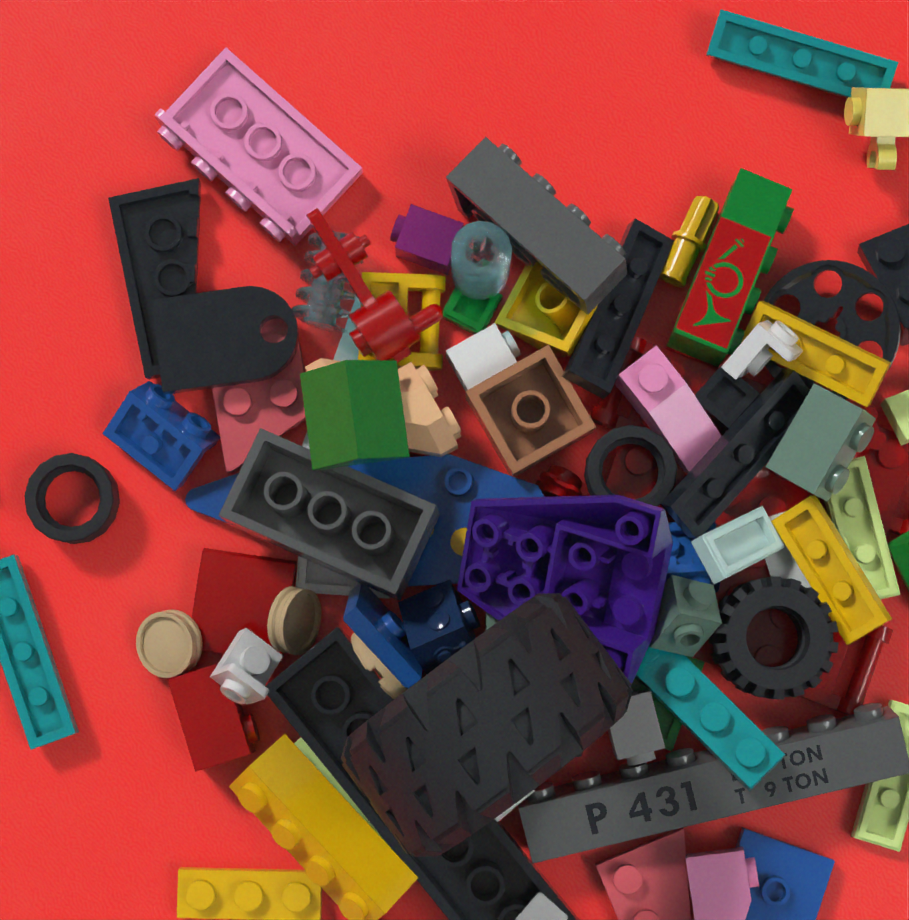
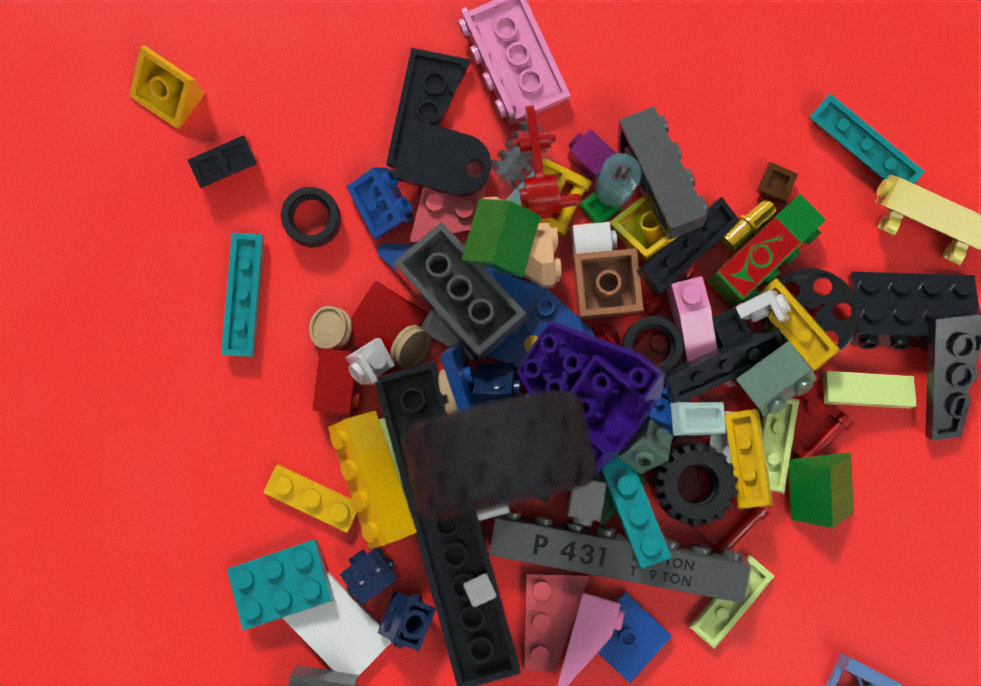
camera: 25 degrees right, 0 degrees up
(702, 165) = (776, 182): none -> reddish brown plate

